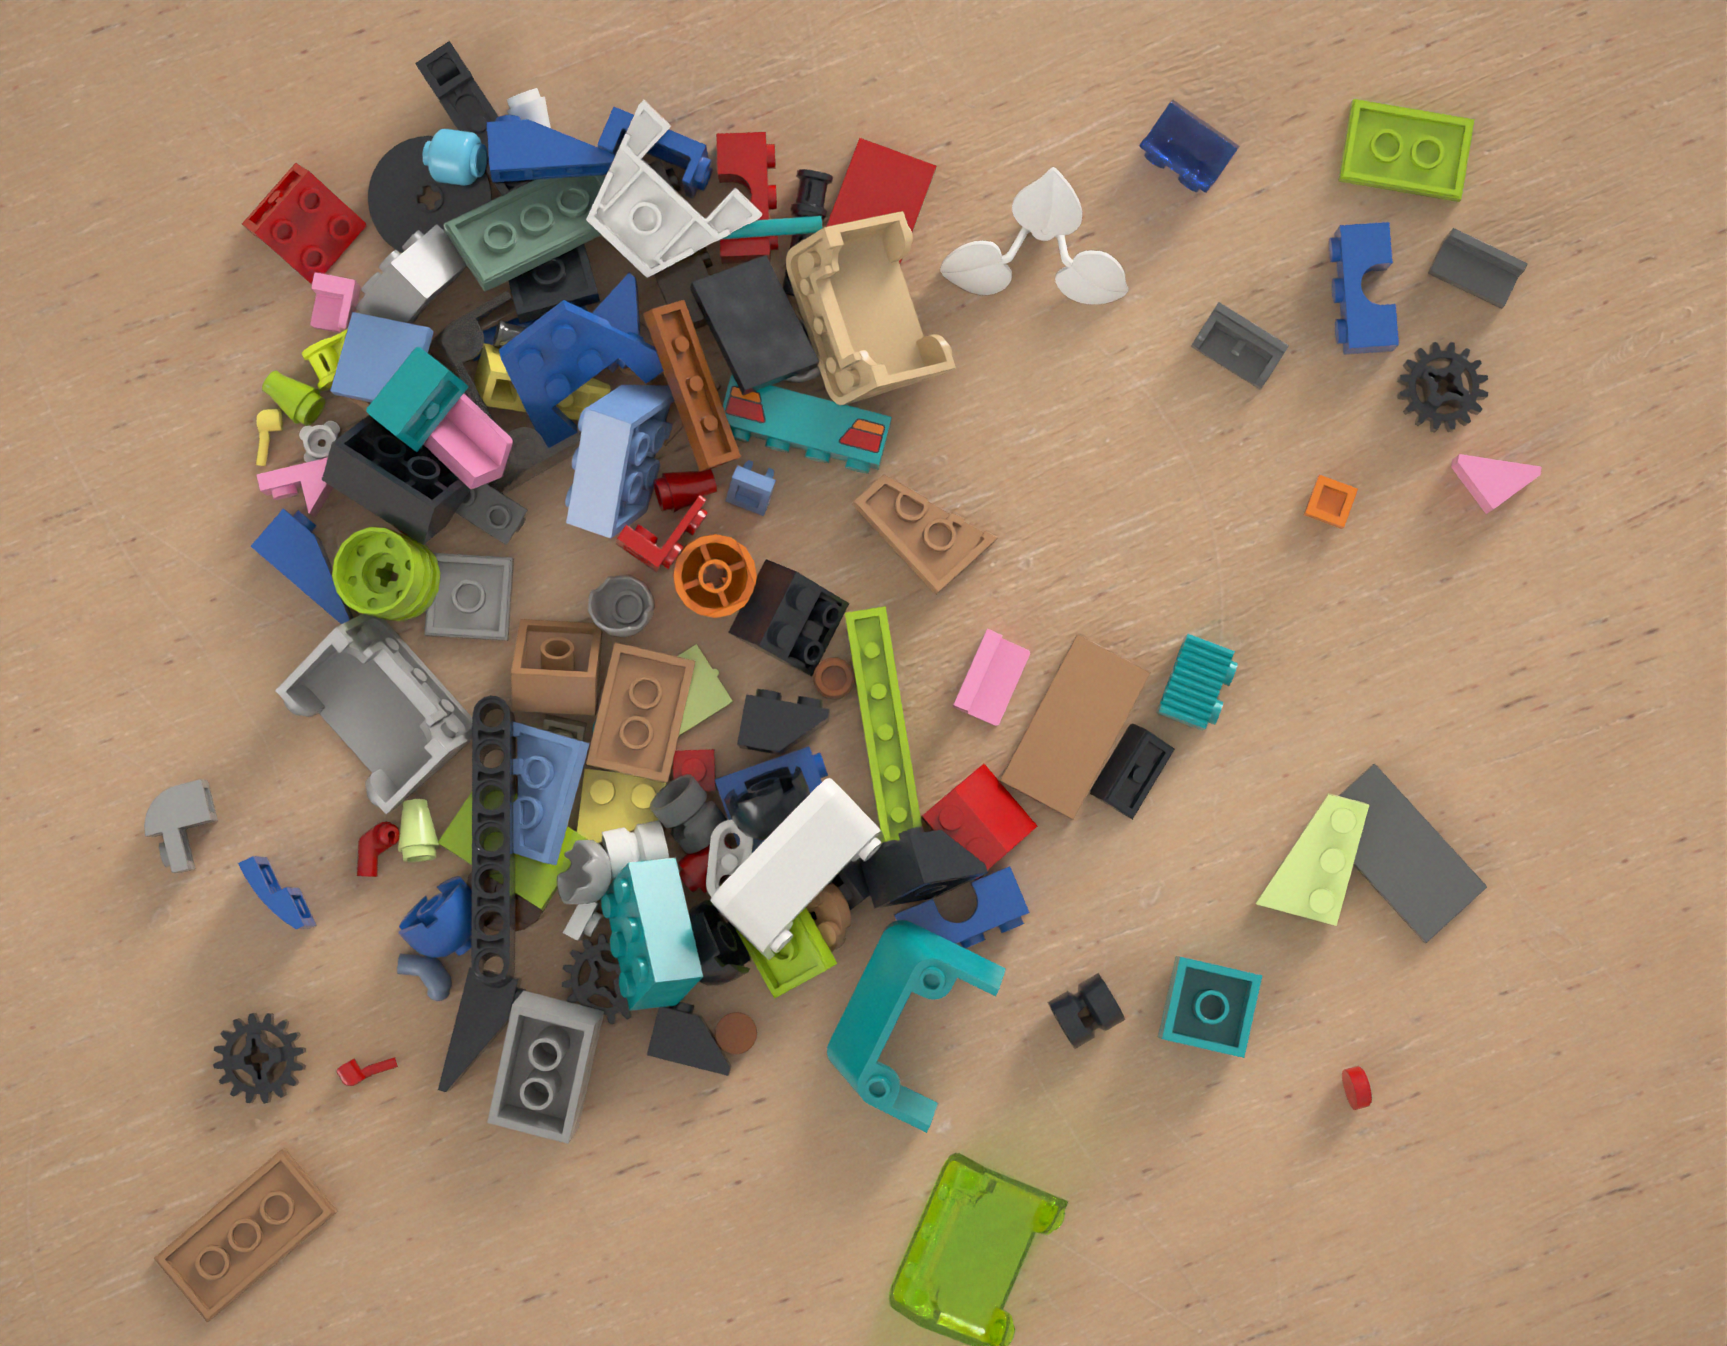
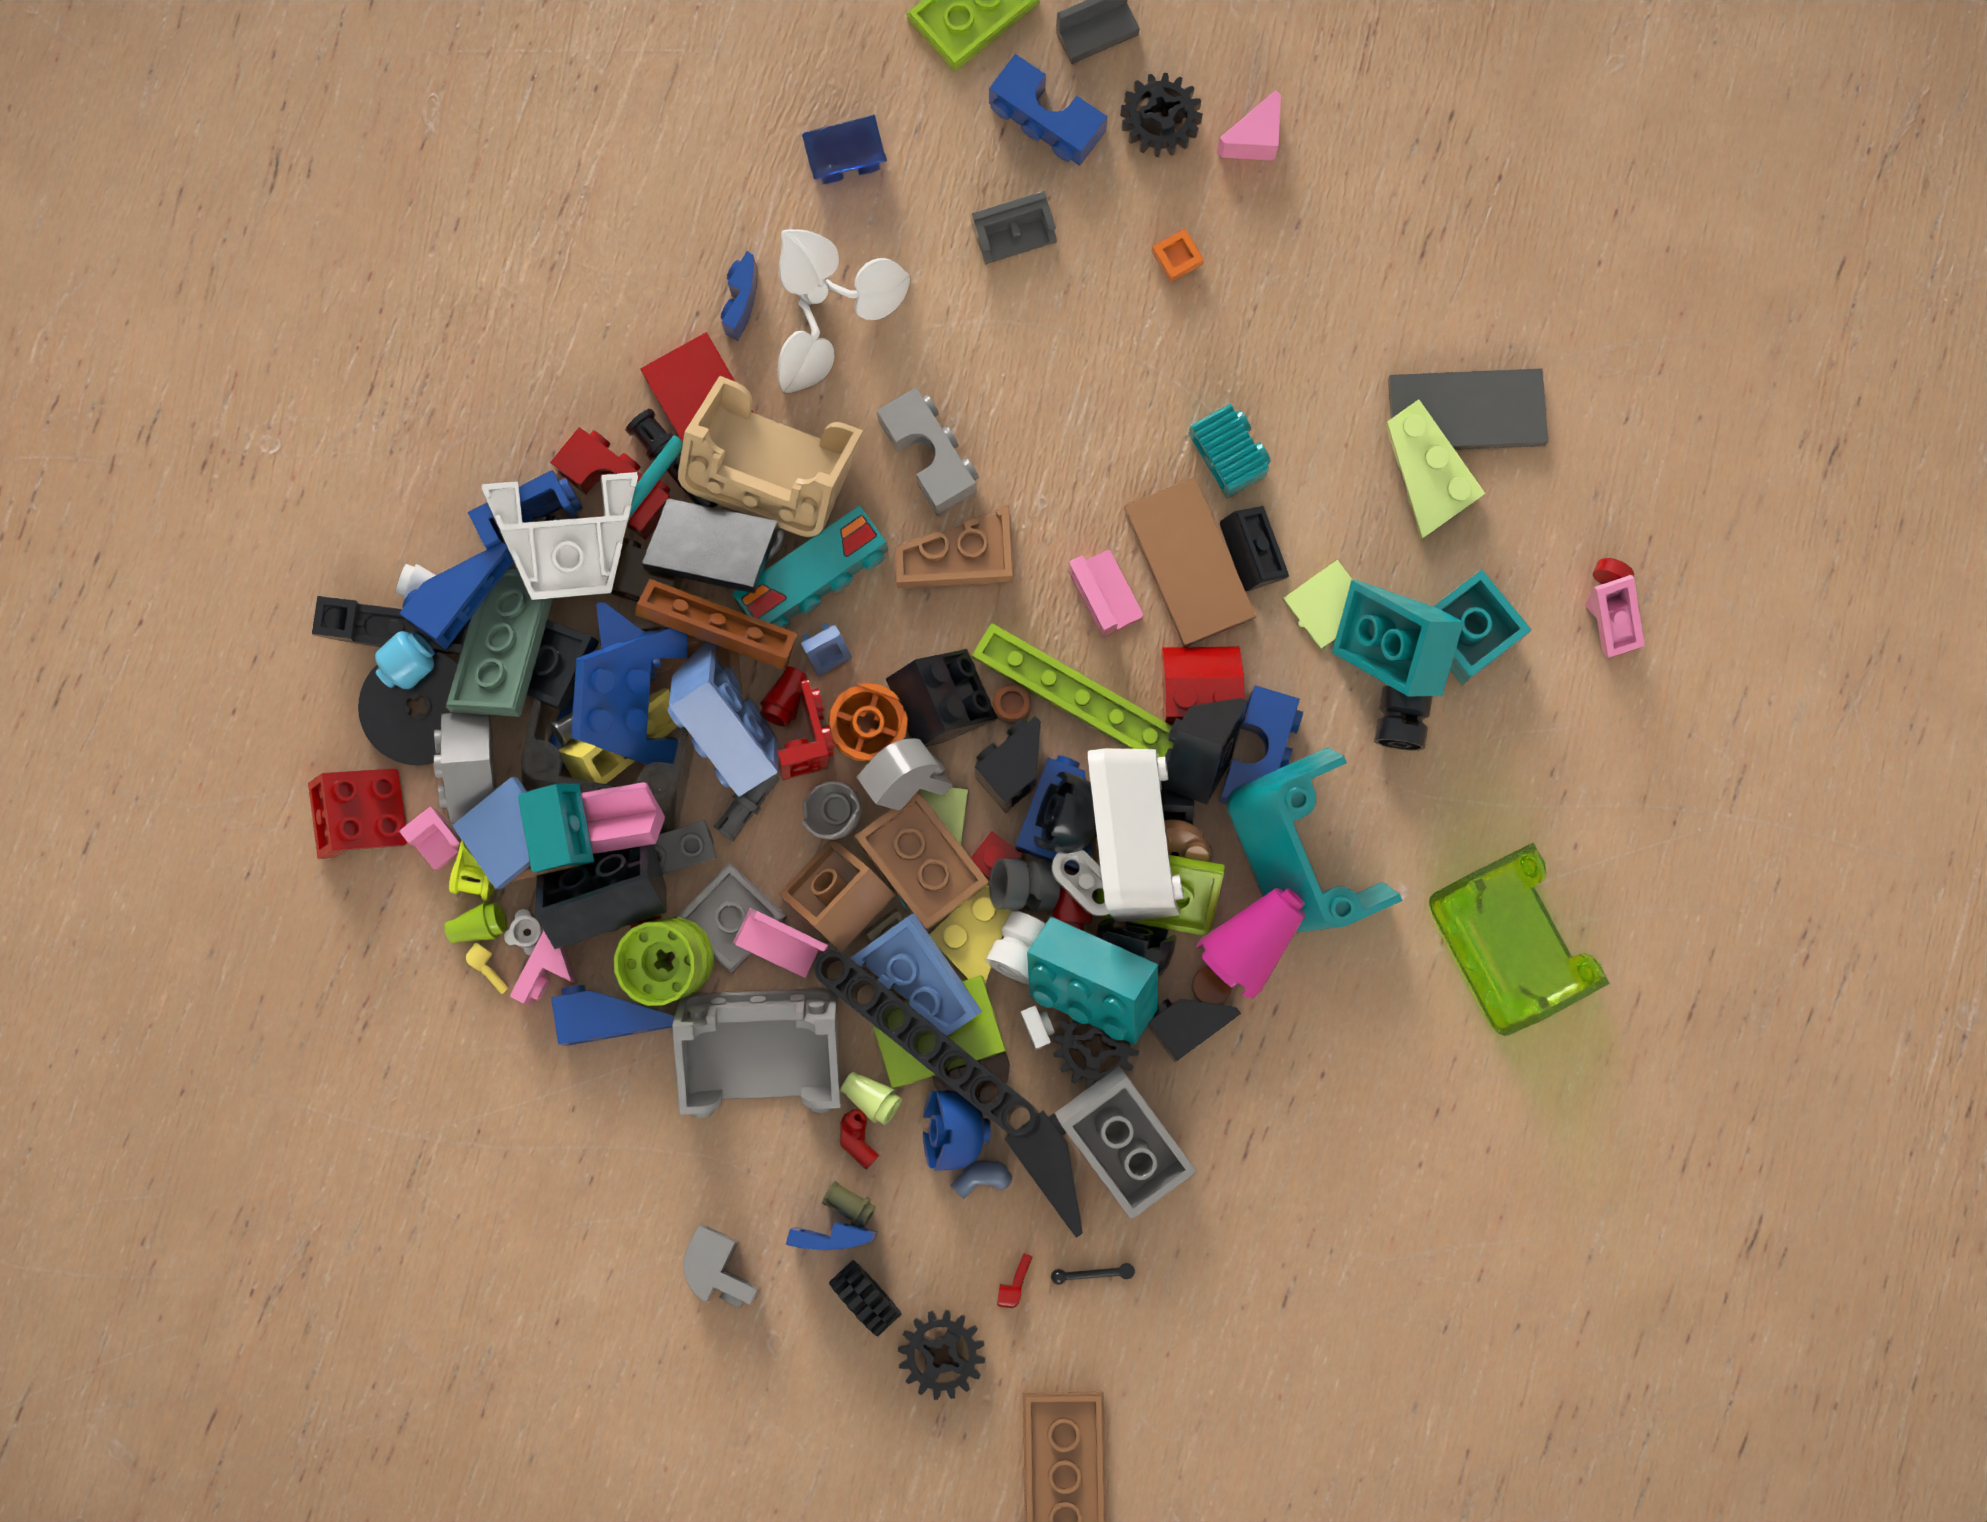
camera: 45 degrees left, 5 degrees down
(252, 960) = (865, 1298): none -> black tyre
(317, 885) = (849, 1204): none -> olive pin
(447, 1151) = (1125, 1270): none -> black hinge
(478, 652) = (778, 942): none -> bright pink panel
(561, 533) = (743, 808): none -> dark grey pin
(588, 874) = (1008, 994): light grey hair -> none
(696, 637) = (901, 771): none -> light grey brick
(792, 1037) = (1253, 940): none -> dark pink cone
(1001, 399) = (913, 421): none -> light grey arch
(1002, 162) = (742, 286): none -> blue slope
(1135, 871) = (1320, 603): none -> yellowish green piece
(1143, 954) = (1397, 639): none -> teal slope
(1320, 1120) = (1617, 616): none -> bright pink slope

